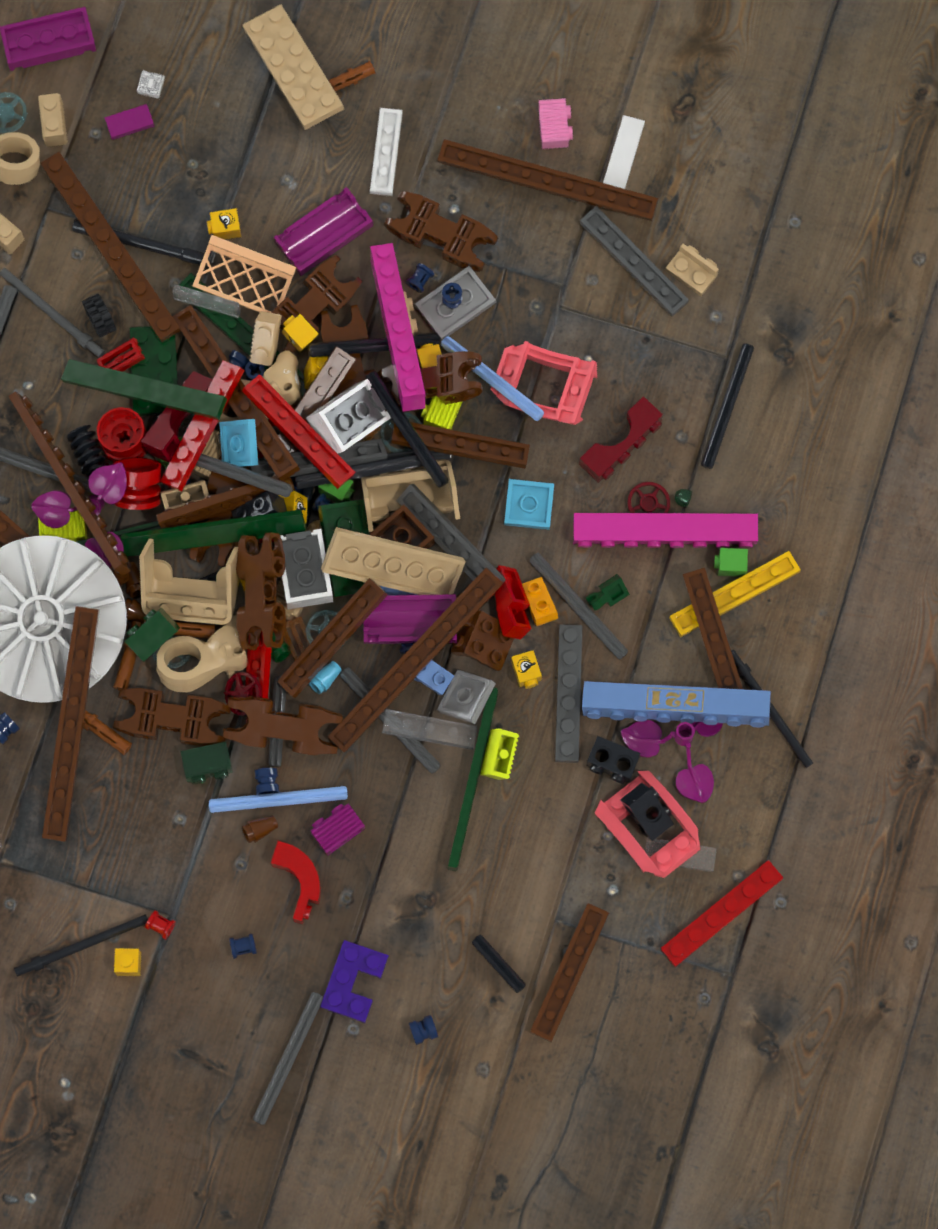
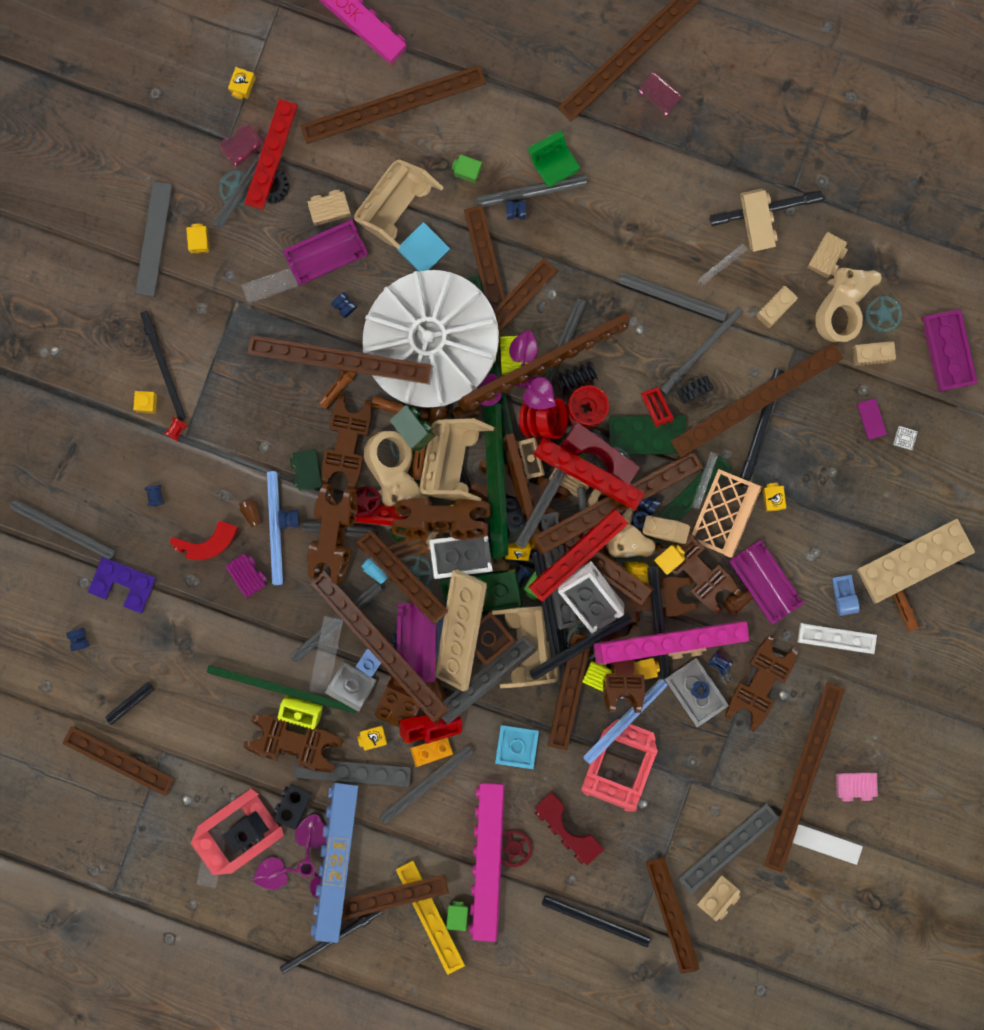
camera: 90 degrees right, 10 degrees up
(144, 389) = (624, 426): dark green tile -> none
(239, 442) = (571, 504): medium azure tile -> none
(336, 143) = (845, 595): none -> medium blue plate
(349, 263) = (736, 603): none -> reddish brown cone
(535, 778) = (278, 739): none -> reddish brown piece
(610, 592) = (436, 812): dark green plate -> none
(683, 497) = (516, 877): clear green hinge -> none
(714, 320) = (672, 915): none -> reddish brown plate
(721, 913) = (161, 889): red plate -> none

